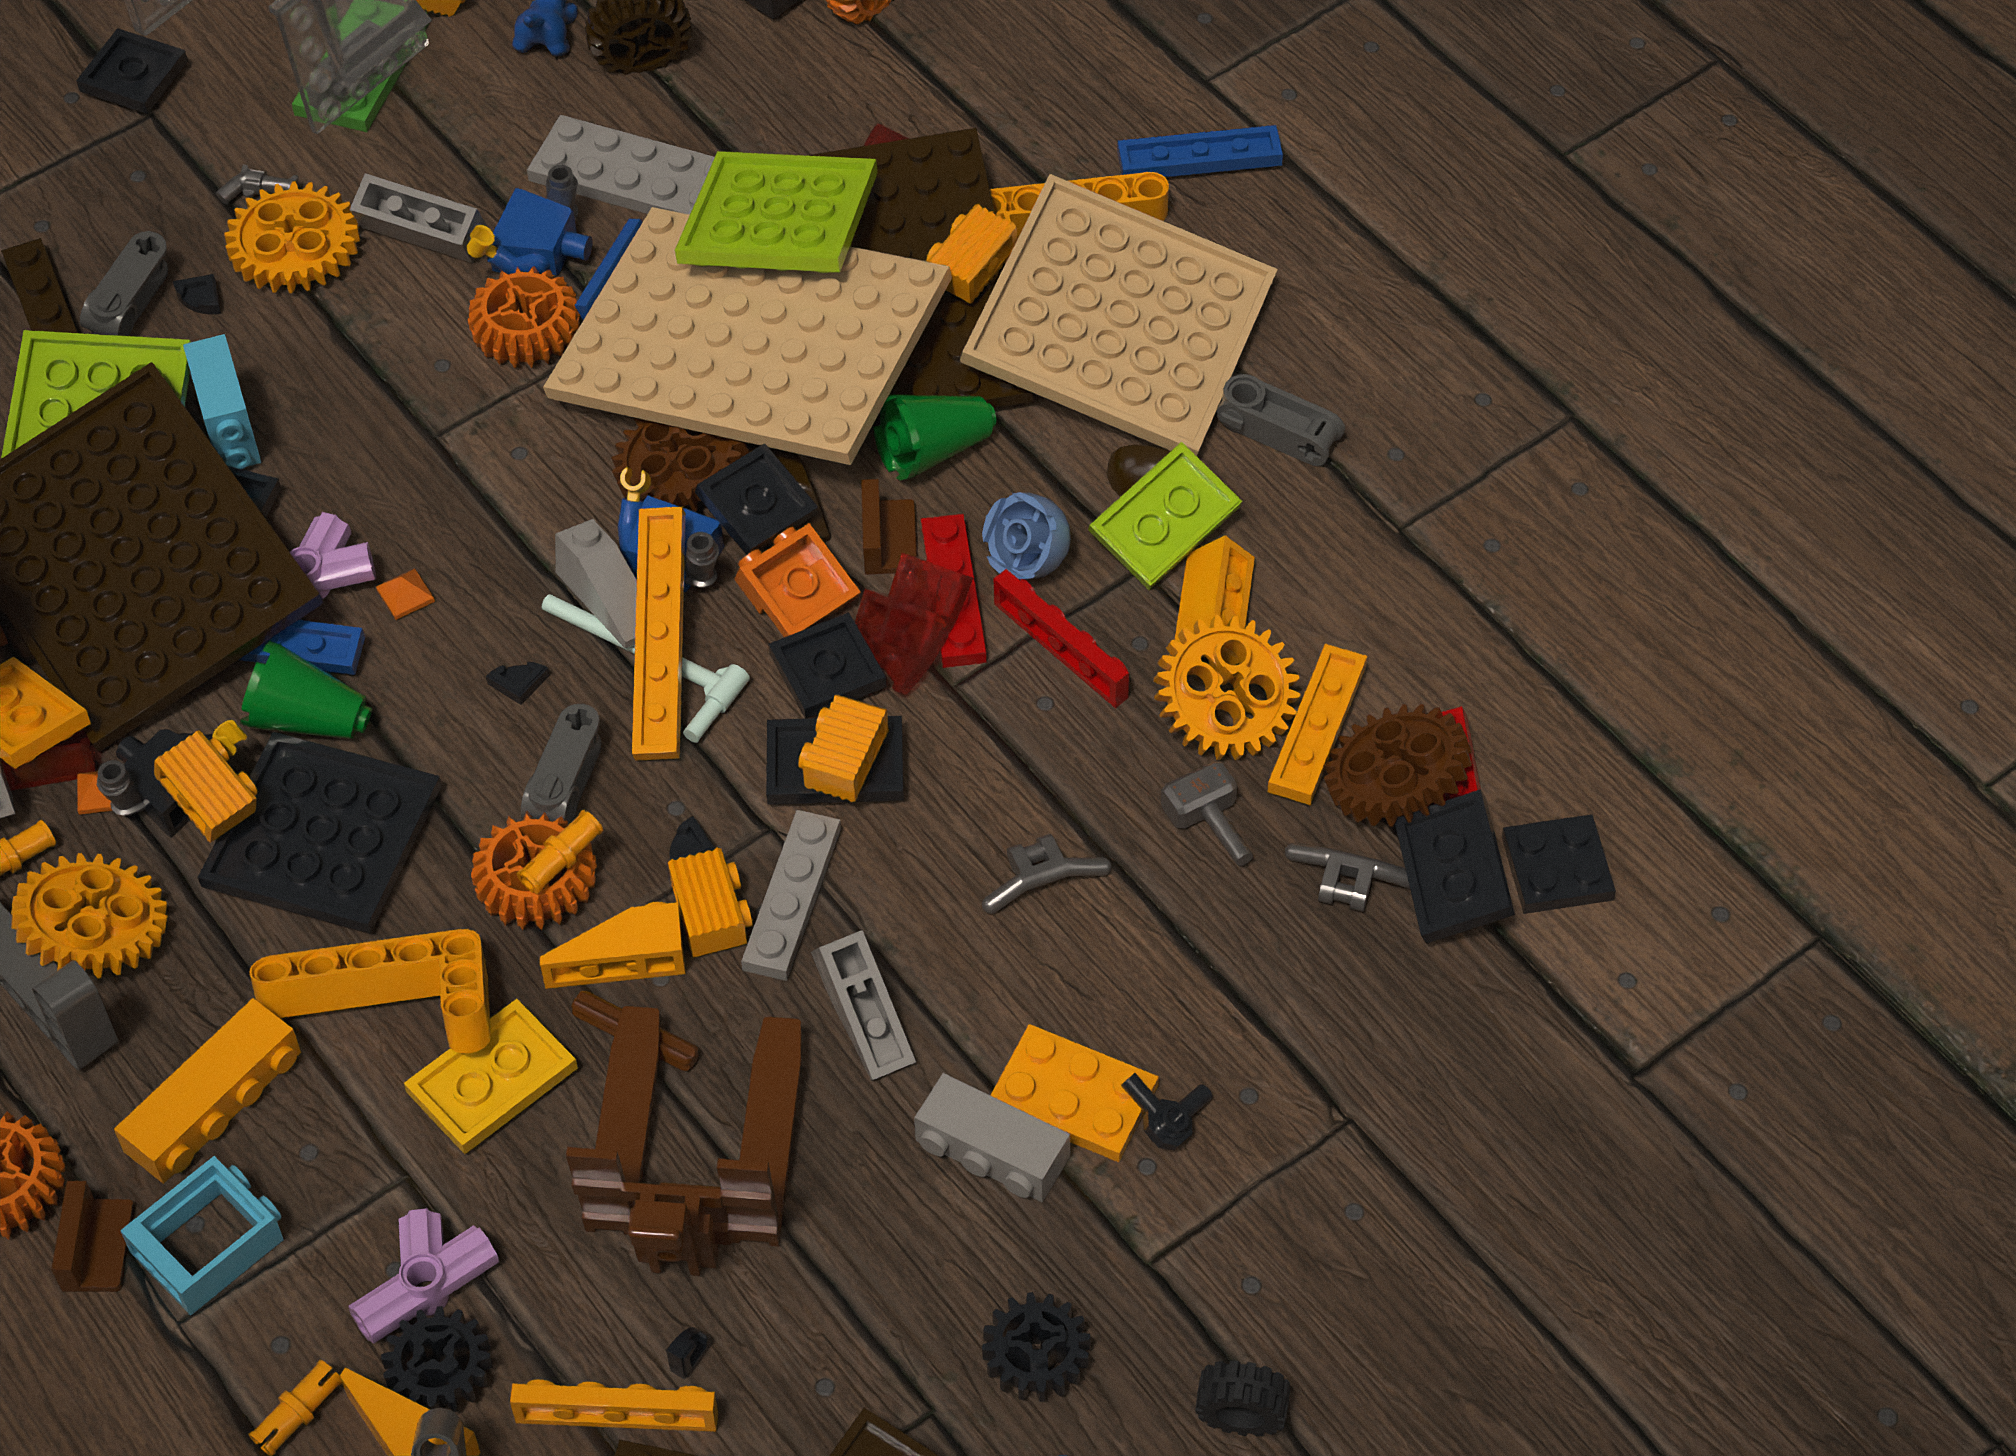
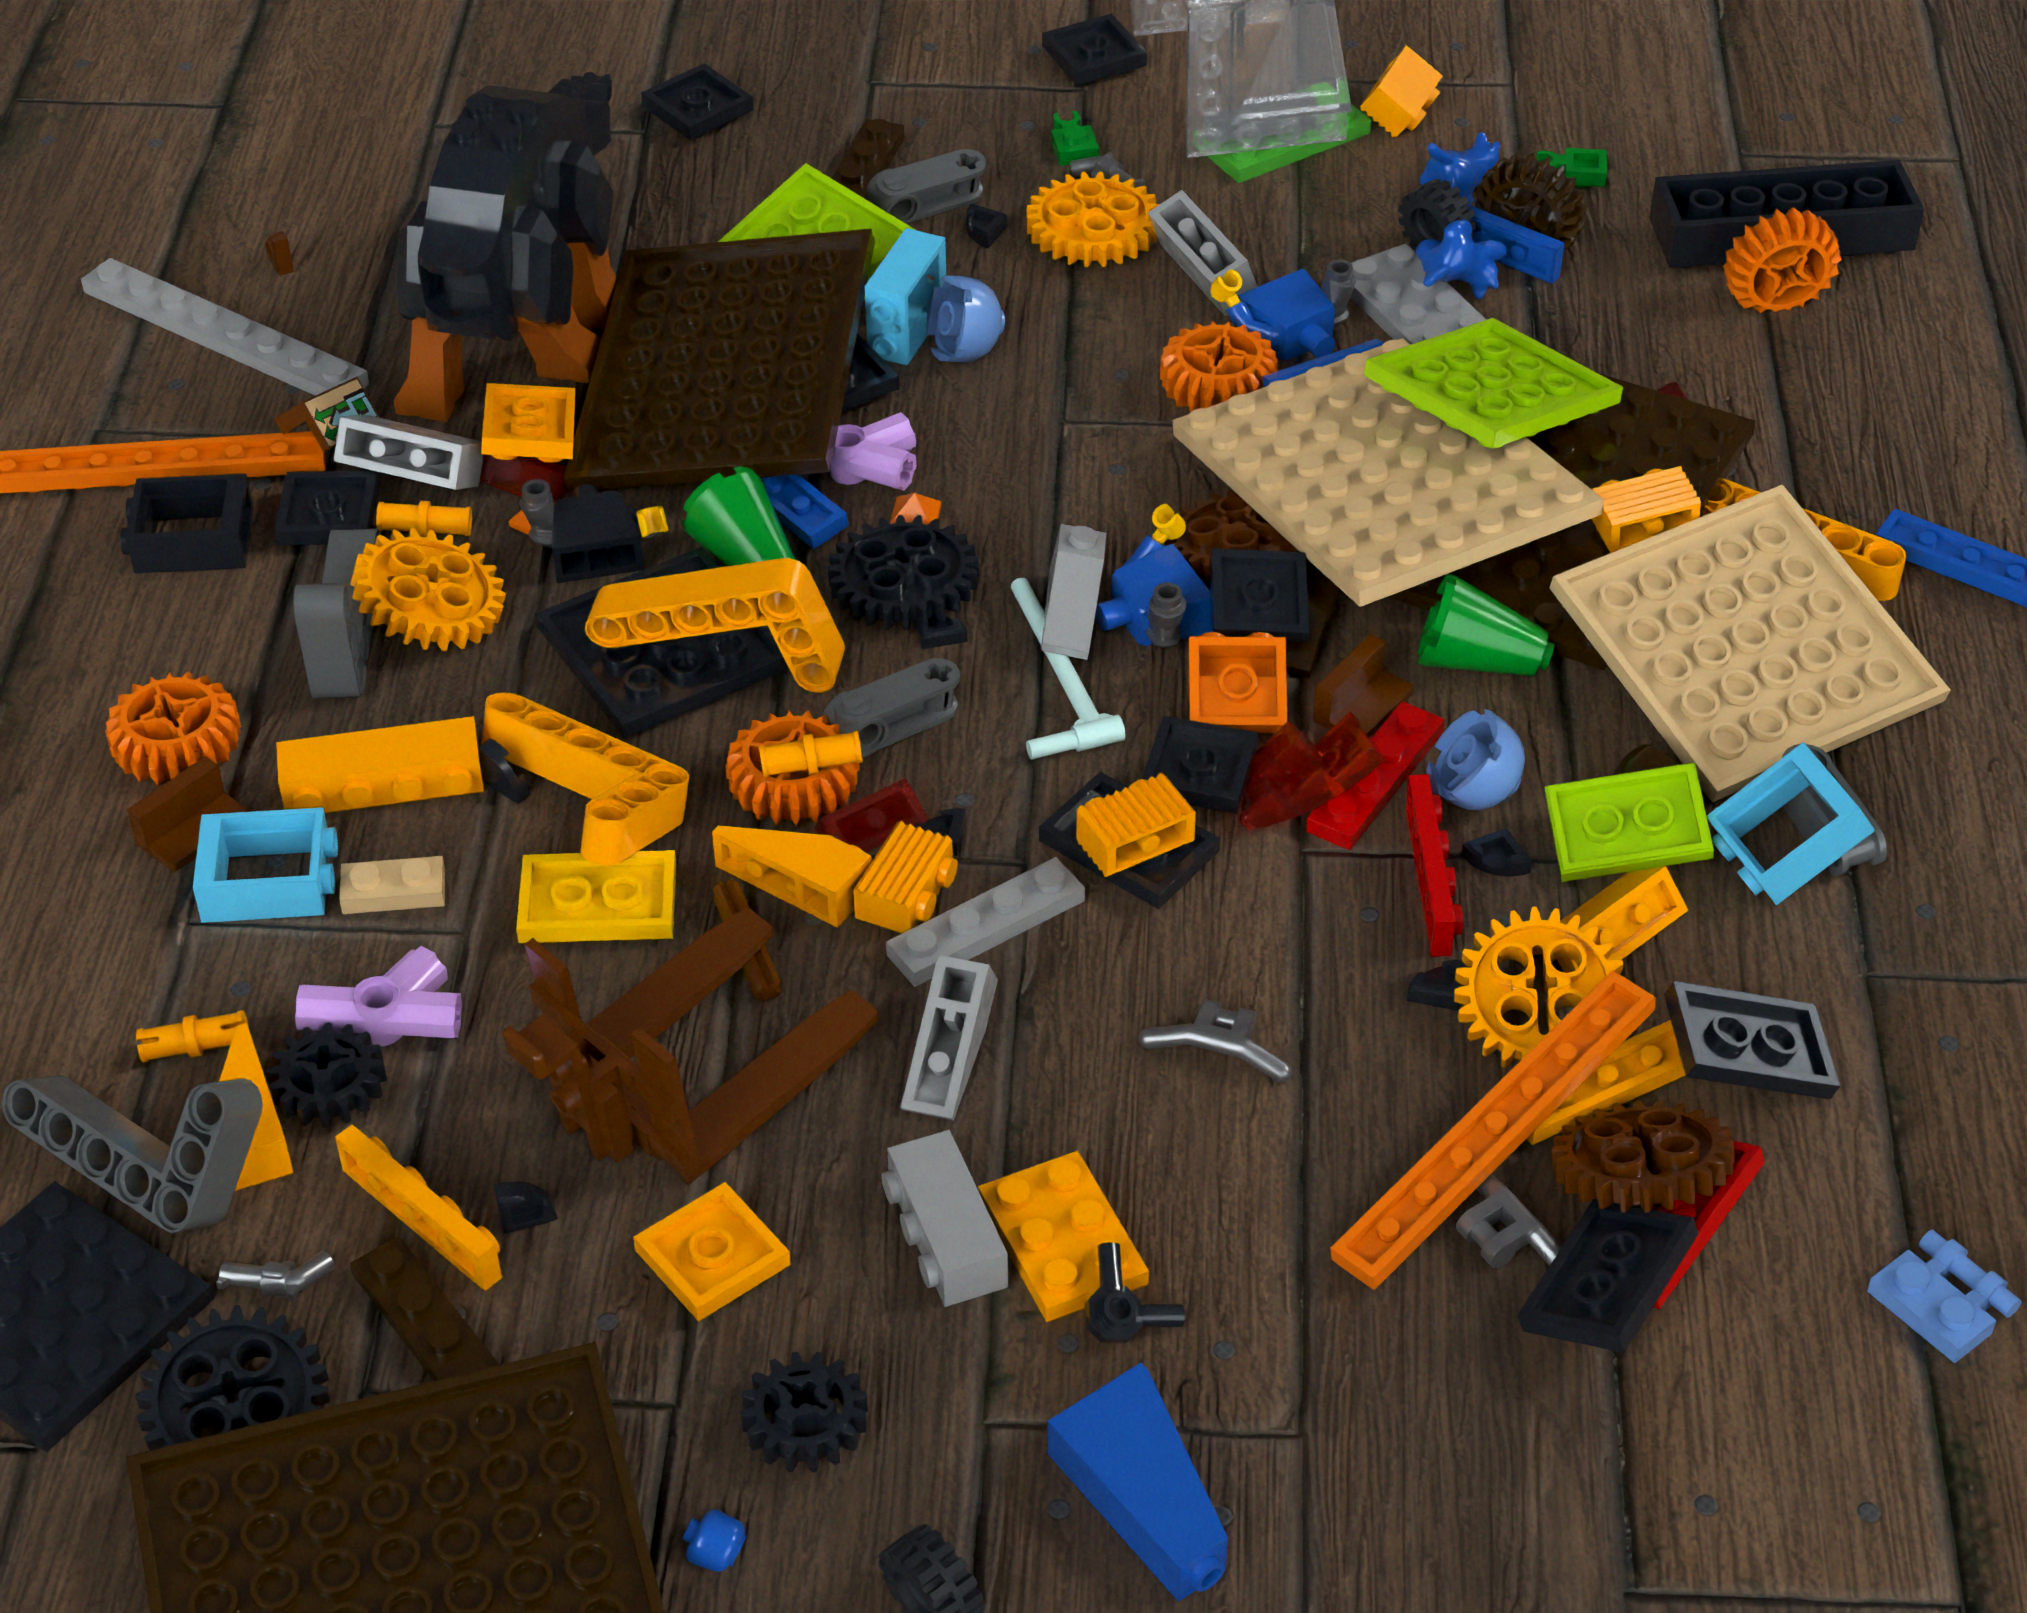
camera: 40 degrees right, 10 degrees down
(196, 172) = (1071, 140): none -> green plate
(206, 785) = (598, 541): light orange brick -> none
(283, 396) = (963, 319): none -> medium blue cylinder
(310, 1029) = (499, 774): none -> black tile
(316, 1177) = (392, 885): none -> tan plate
(363, 778) = (724, 600): none -> light orange beam
(453, 649) = (903, 572): none -> black gear
(579, 66) = (1431, 209): none -> black tyre
(626, 108) = (1461, 258): none -> blue animal
(629, 870) = (874, 816): none -> clear red slope
(635, 69) = (1526, 248): none -> blue tile
(659, 634) = (1071, 650): light orange plate -> none
(855, 1282) = (712, 1251): none -> light orange plate
(1092, 598) = (1497, 854): none -> black tile
(1146, 726) = (1436, 986): none -> black tile
(1204, 796) = (1428, 1071): flat silver piece -> none
(1266, 398) = (1768, 794): none -> medium azure window
(1291, 813) = (1492, 1130): none -> orange plate
(1297, 1226) = (1141, 1480): none -> blue slope
(1387, 631) = (1751, 1040): none -> black plate
(1558, 864) = (1733, 1353): black plate -> none
(1642, 743) = (1934, 1306): none -> medium blue plate

